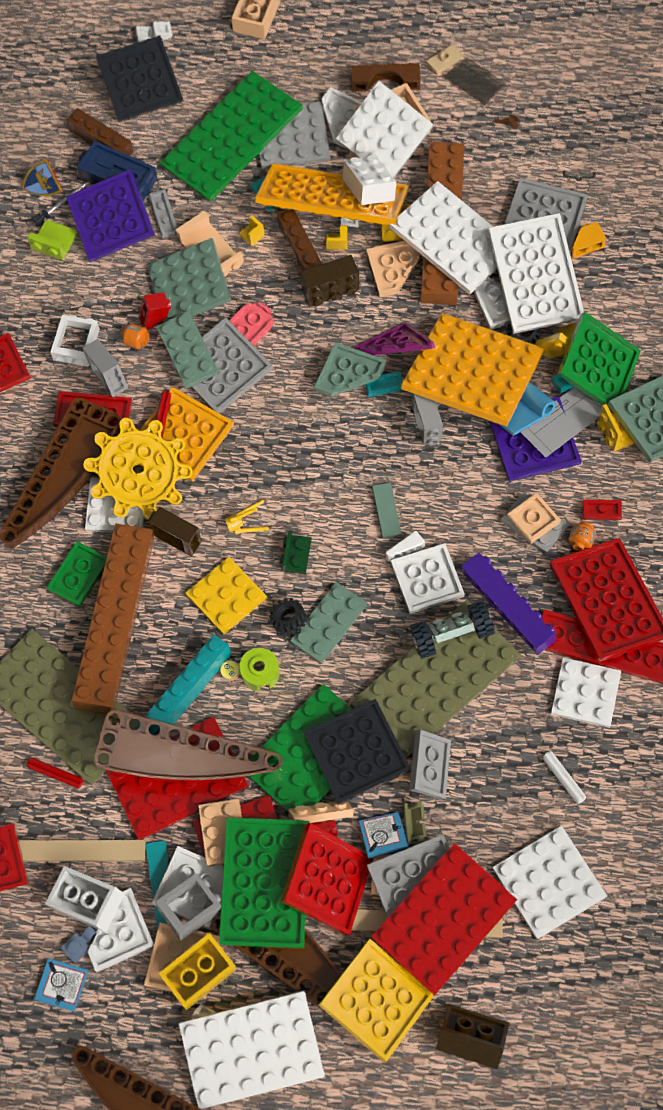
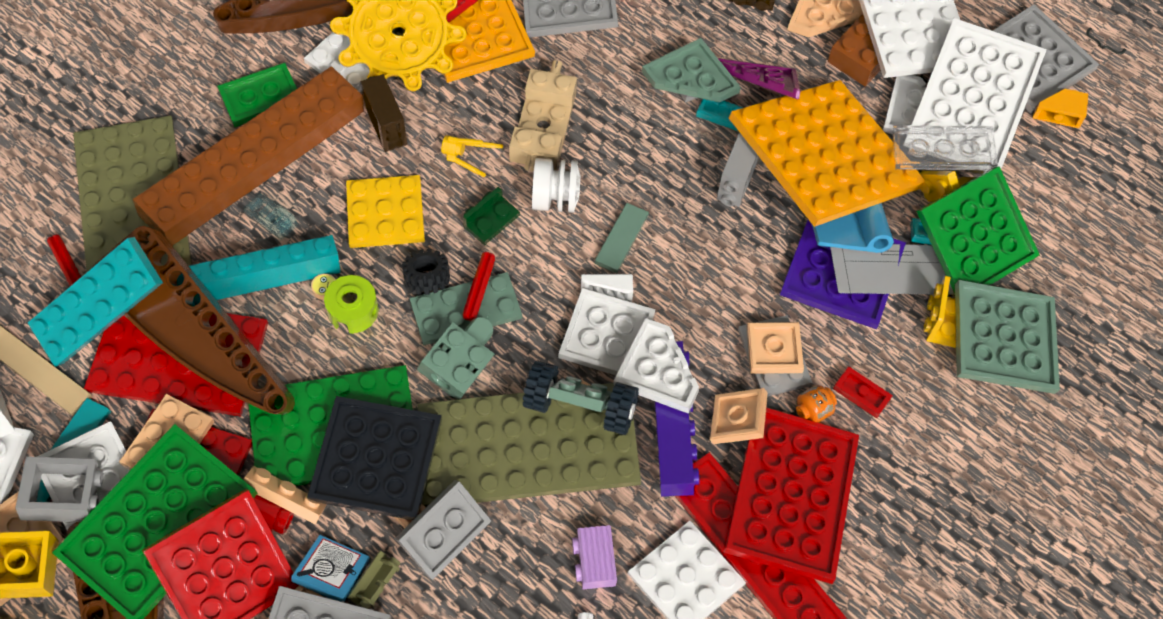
camera: 30 degrees right, 5 degrees down
(112, 781) = (95, 301): none -> teal plate
(170, 656) = (281, 226): none -> clear light blue slope
(270, 448) = (548, 99): none -> tan brick
(326, 503) = (555, 185): none -> white wheel
(329, 603) = (478, 286): none -> red axle
(354, 656) = (461, 354): none -> sand green brick
(480, 579) = (659, 368): none -> white plate
(527, 717) = (595, 557): none -> lavender brick
(542, 319) = (944, 147): none -> clear tile
(544, 575) = (738, 416): none -> light nougat tile

